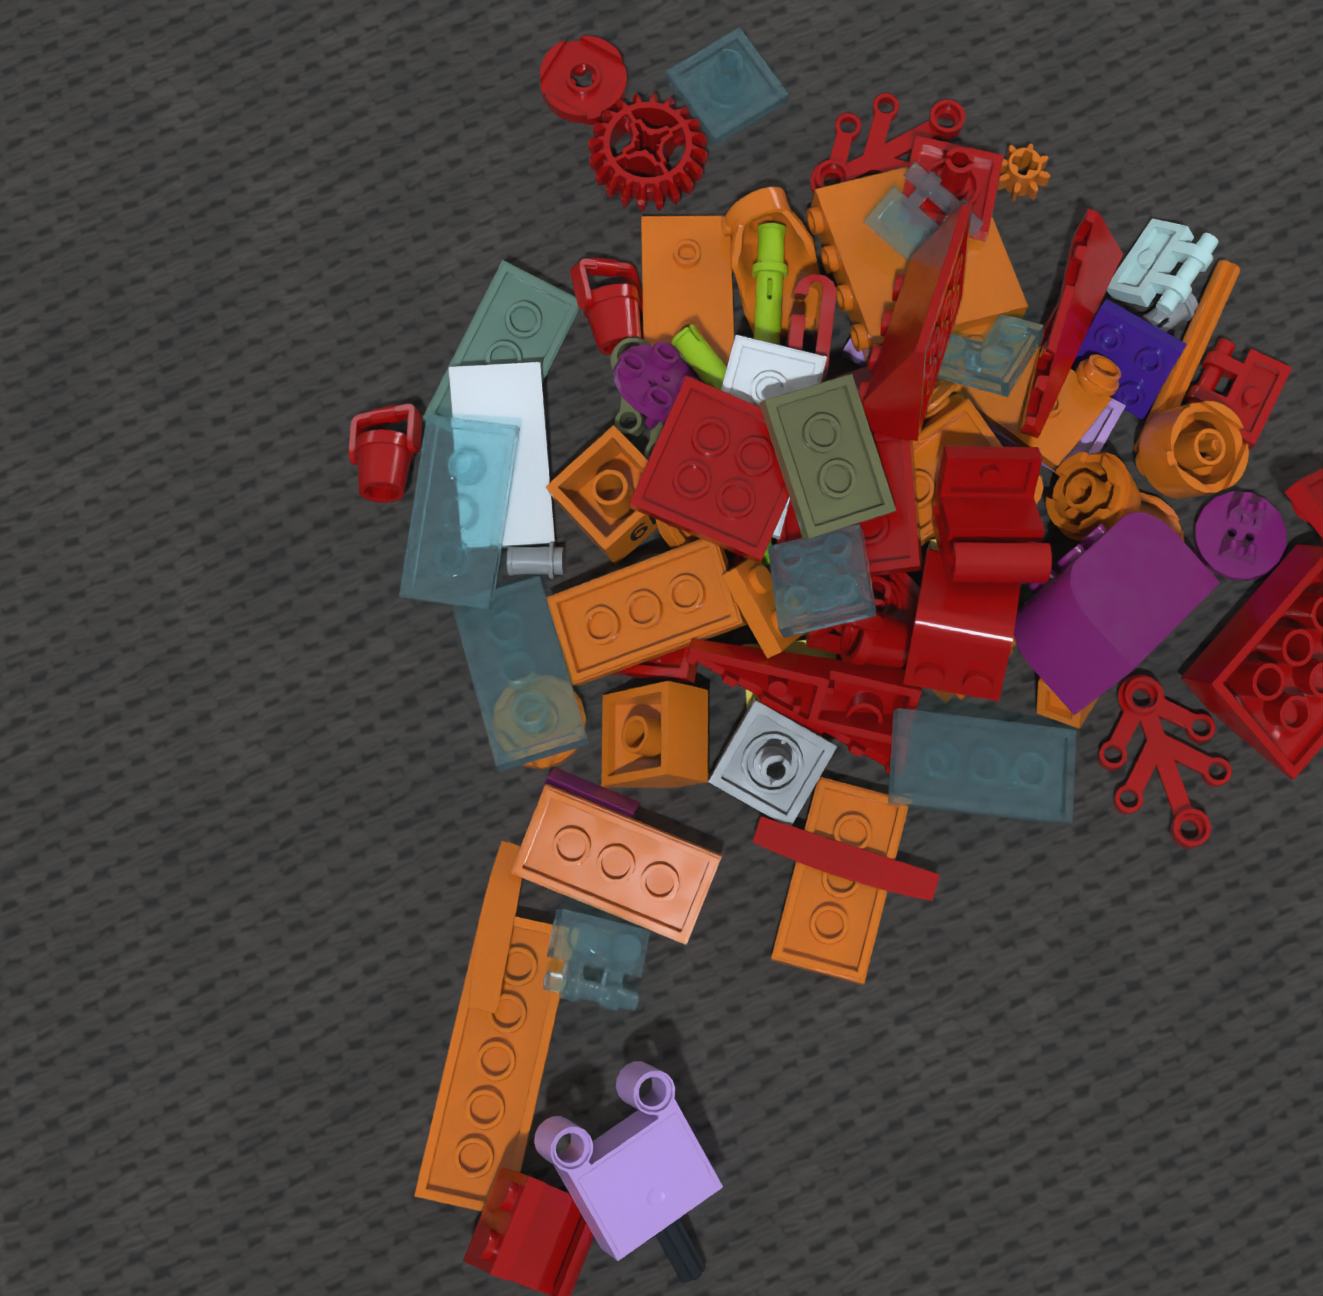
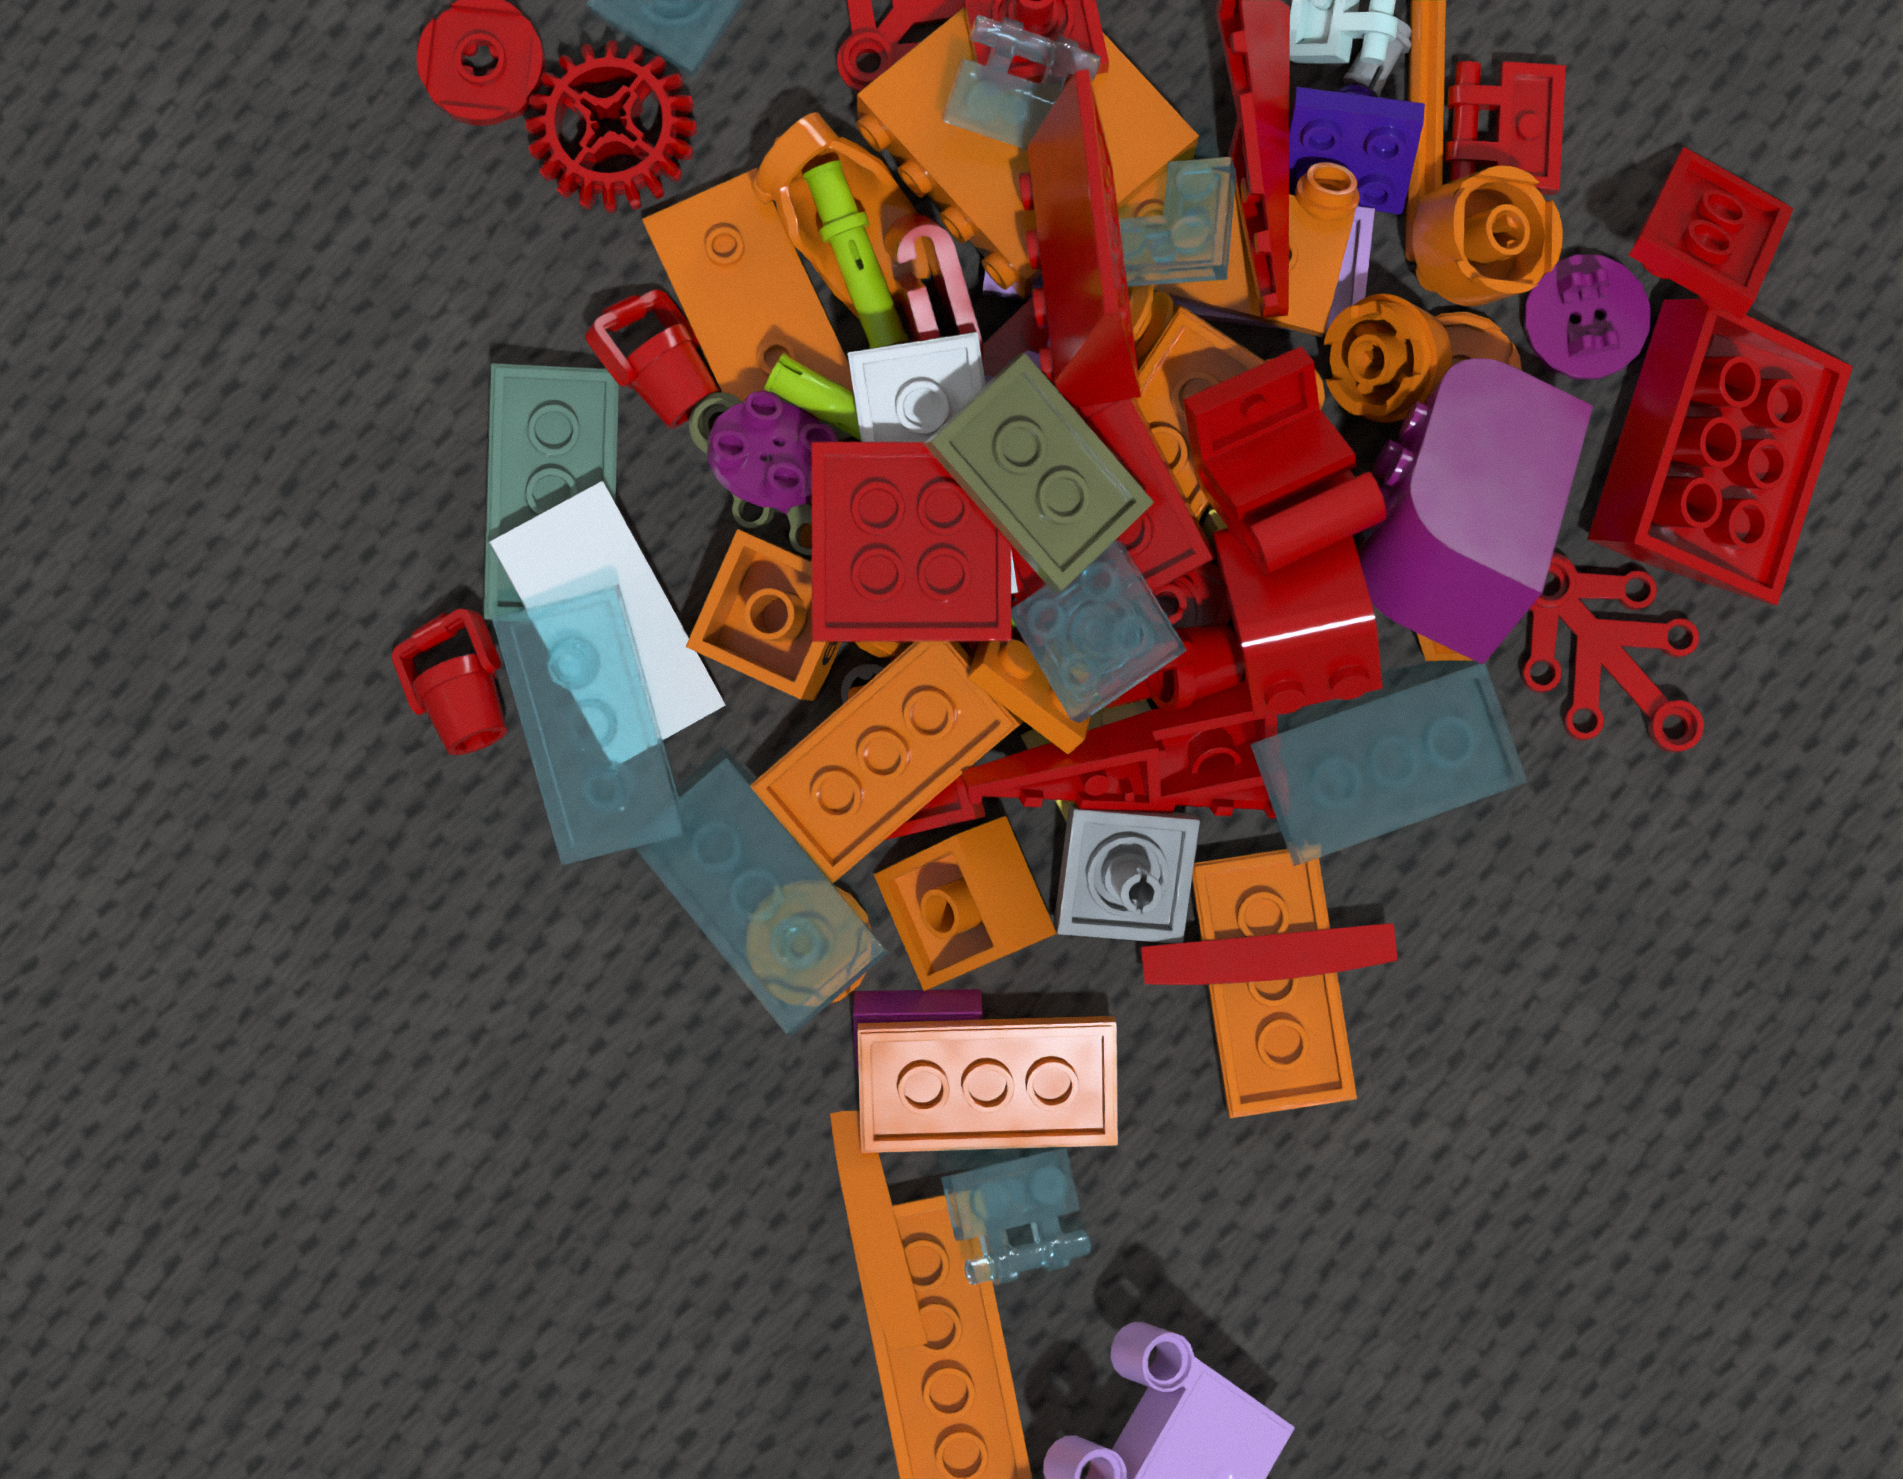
camera: 20 degrees left, 10 degrees up
(536, 560) = (713, 739): light grey pin -> none

